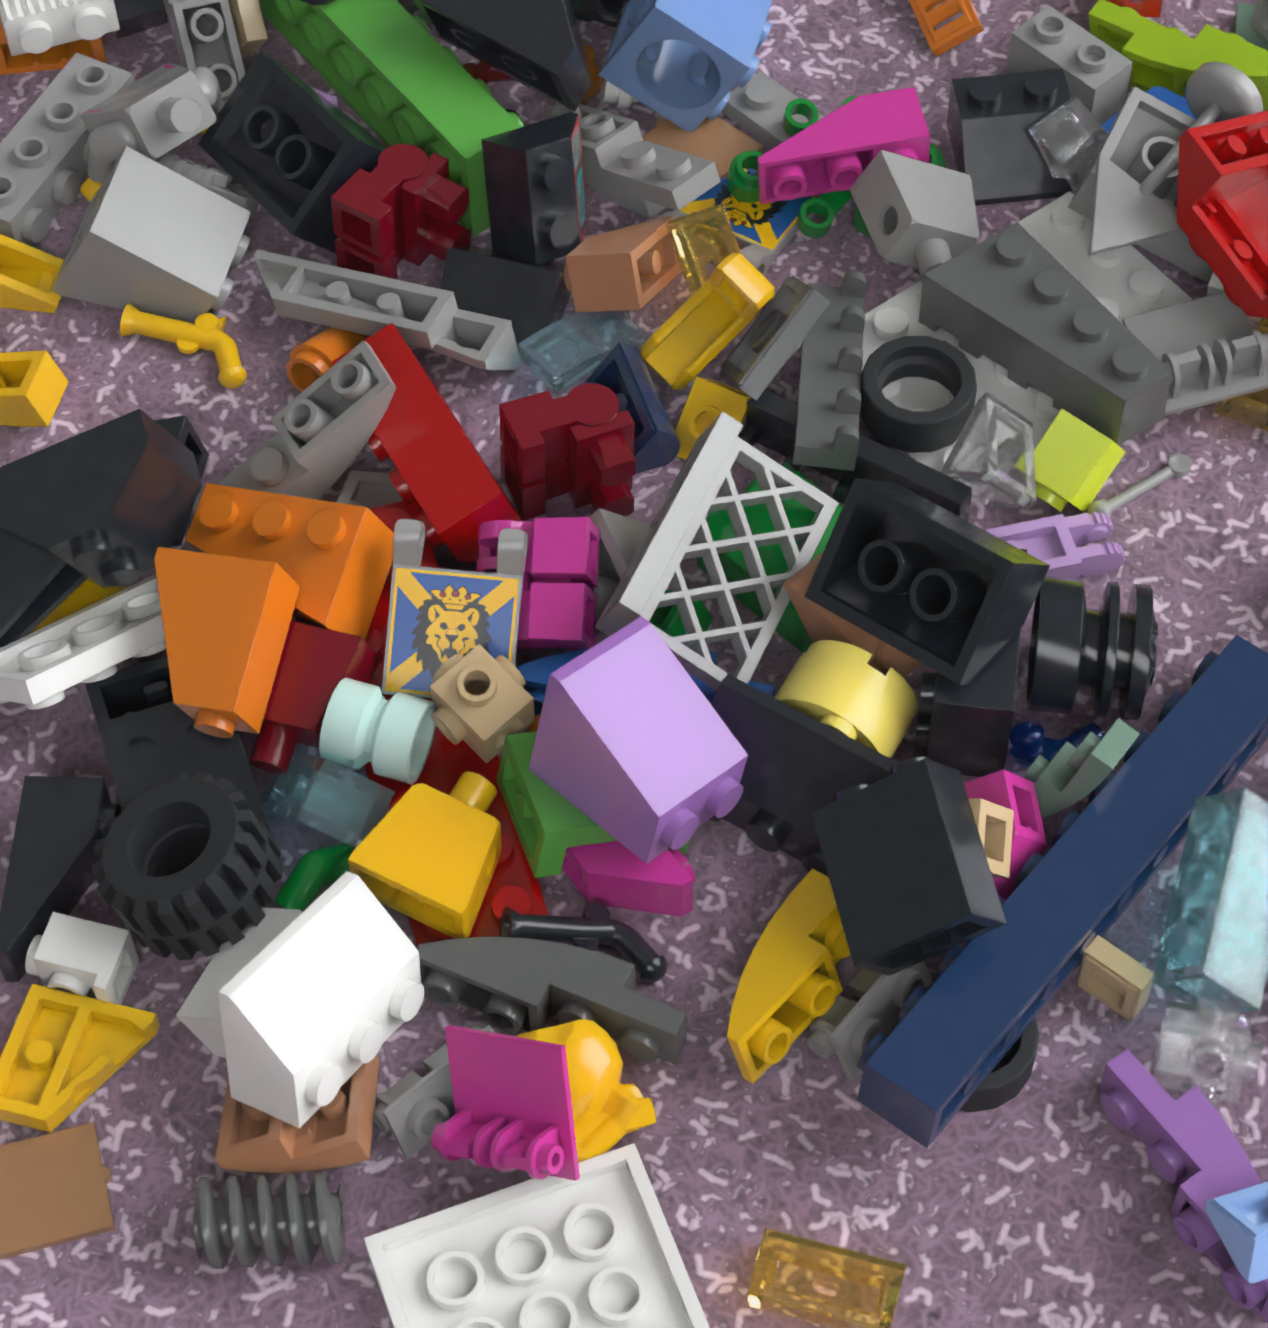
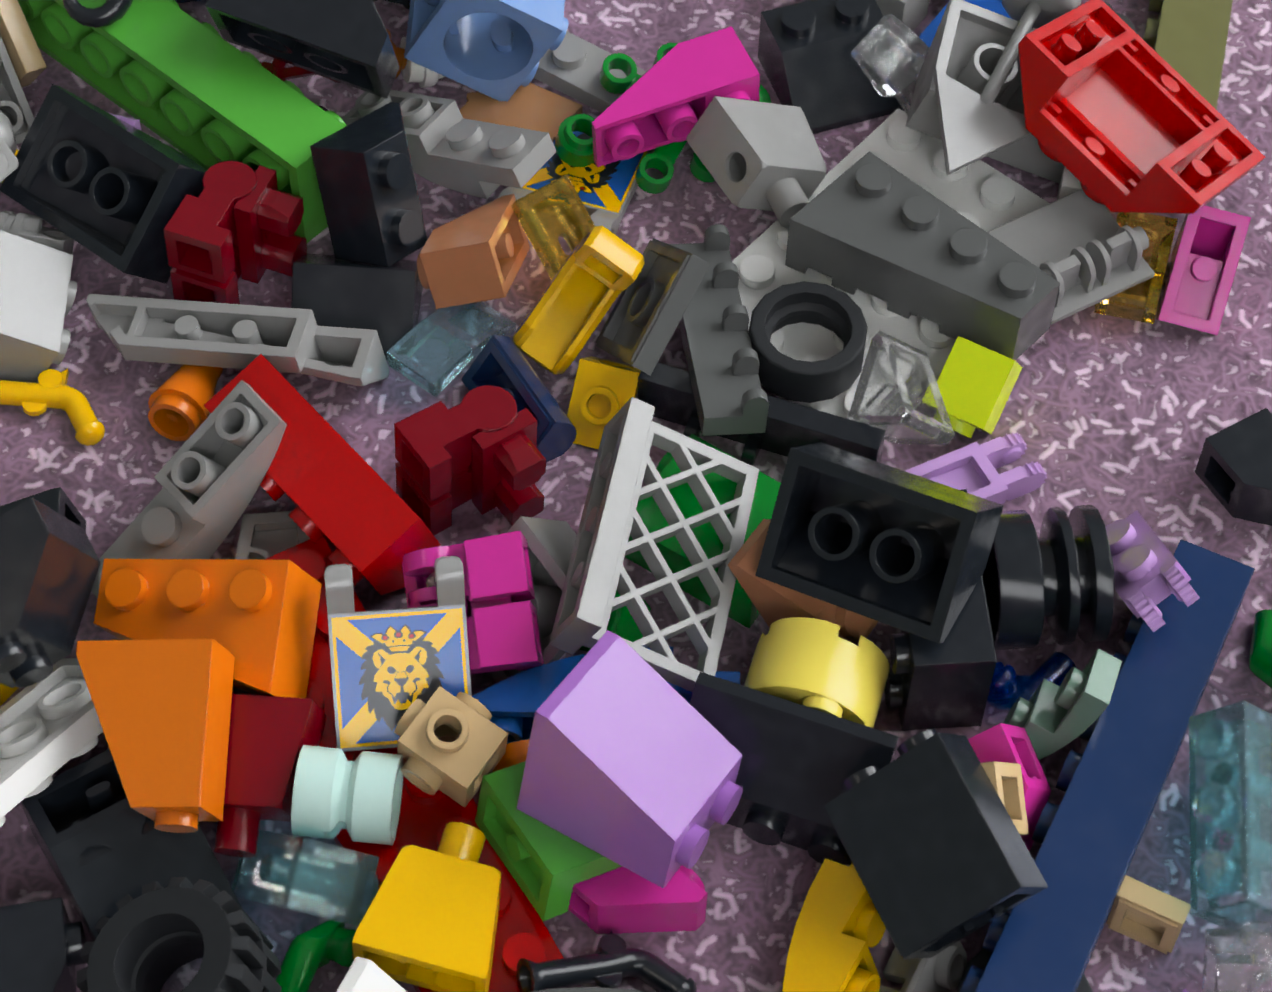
camera: 15 degrees left, 0 degrees up
(1177, 466) = (1070, 373): light grey hinge -> none
(1190, 655) = (1145, 569): none -> lavender hinge

